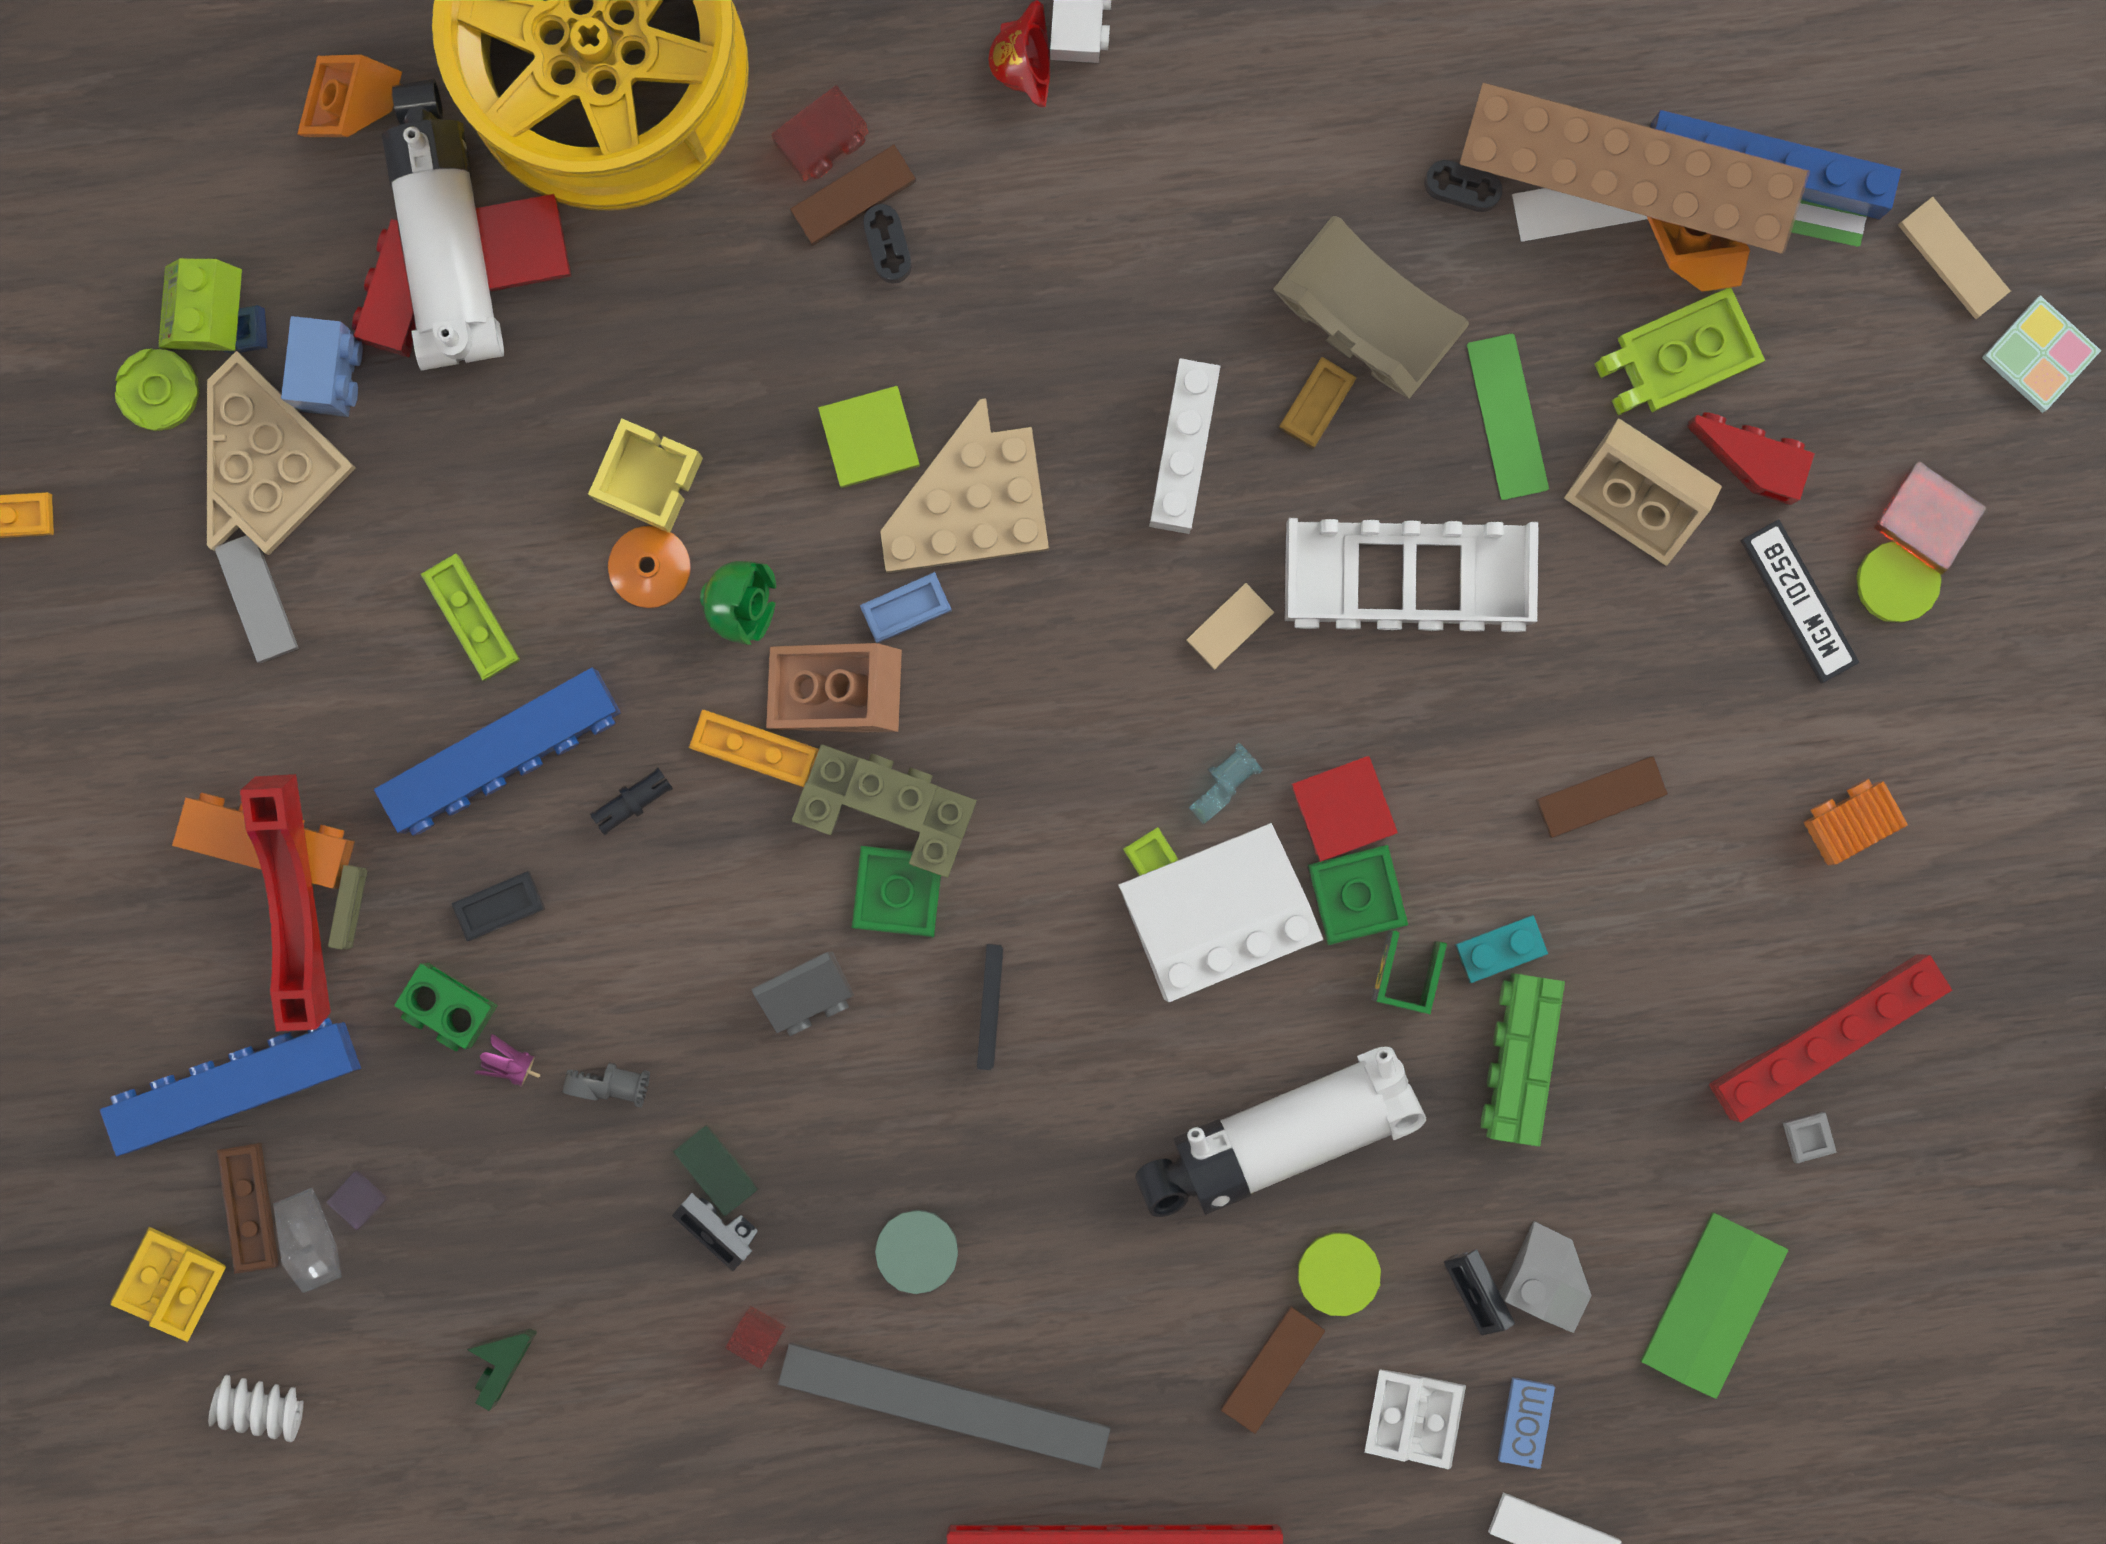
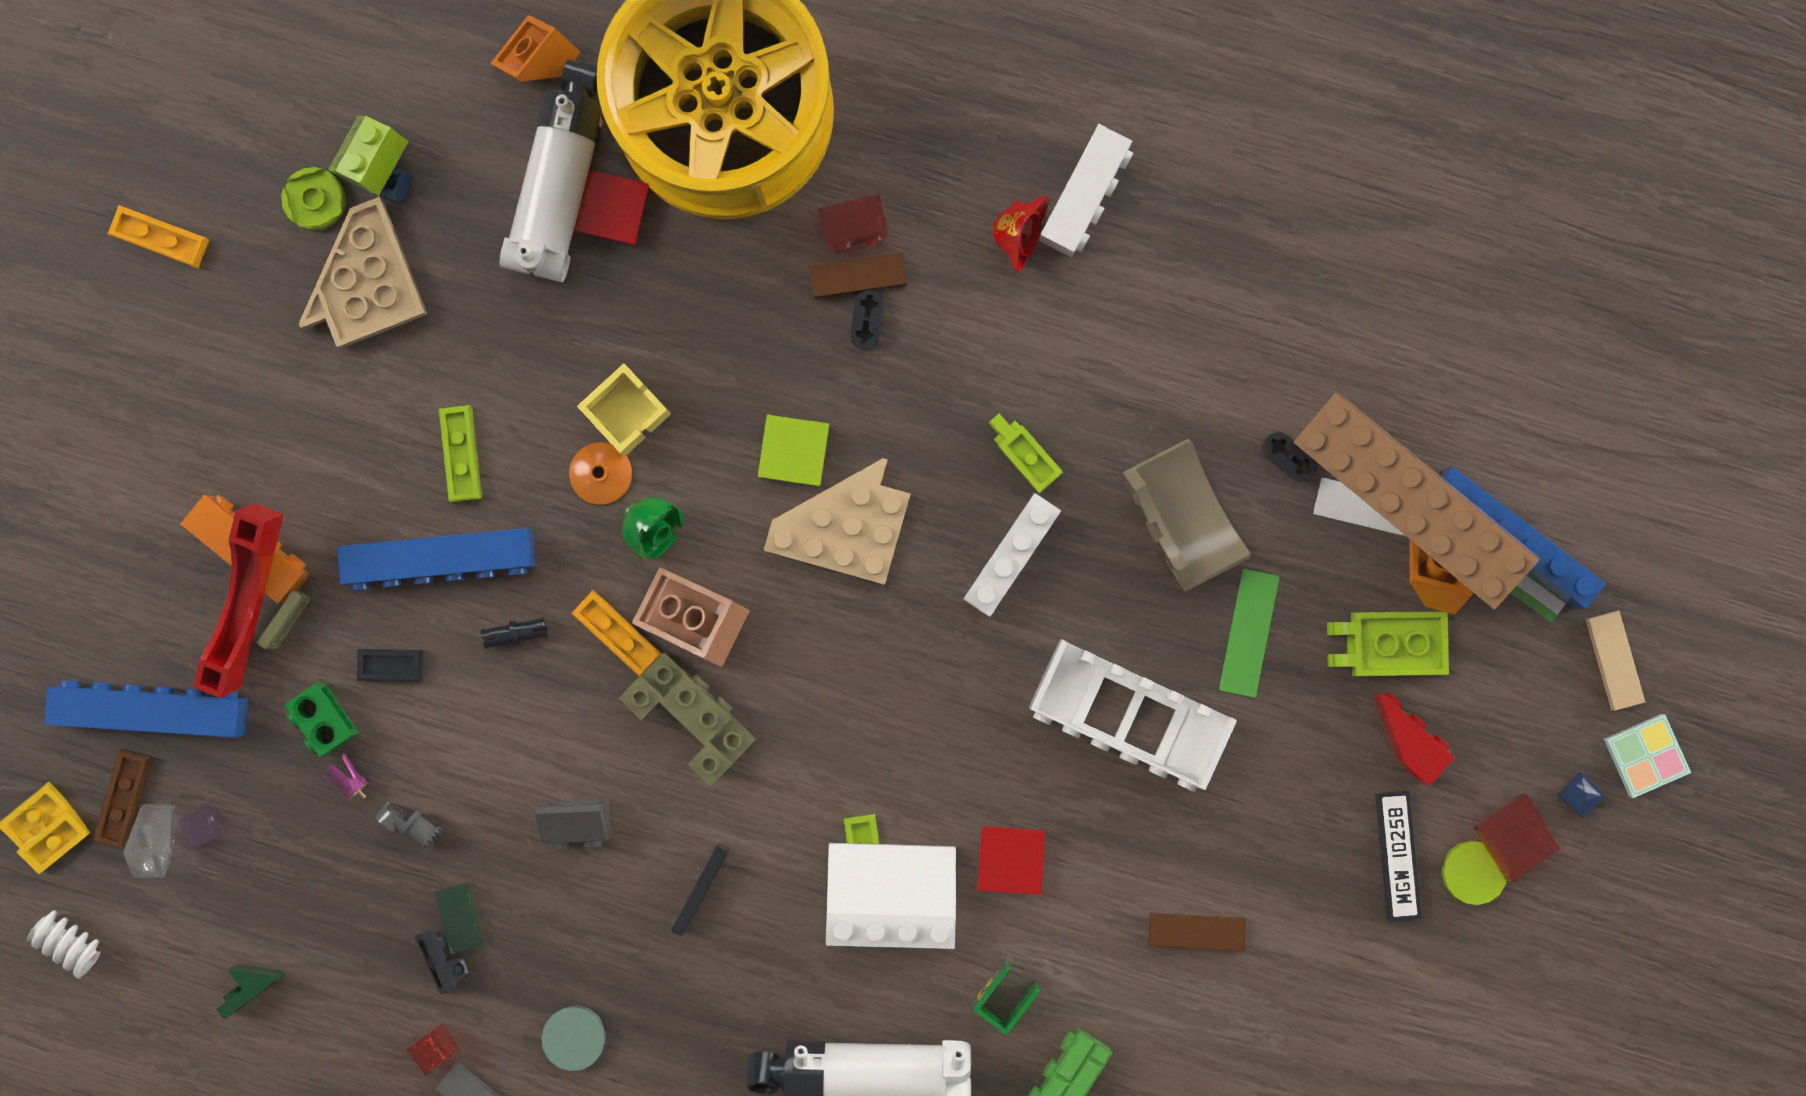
camera: 30 degrees right, 0 degrees up
(256, 599) = (317, 376): light grey tile -> none
(321, 367) = (431, 234): medium blue piece -> none
(388, 309) = (495, 215): red slope -> none
(895, 893) = (668, 779): green tile -> none
(905, 608) = (766, 581): medium blue tile -> none
(1146, 319) = (1025, 453): none -> lime hinge
(1229, 776) = (941, 800): clear light blue connector -> none
(1230, 626) = (988, 695): tan tile -> none
(1317, 402) = (1119, 564): pearl gold tile -> none
(1357, 895) = (994, 924): green tile -> none
(1501, 949) = (1078, 1007): teal plate -> none
(1643, 492) = (1321, 730): tan slope -> none
(1855, 822) = (1368, 1030): orange brick -> none
(1983, 434) = (1581, 795): none -> dark blue tile

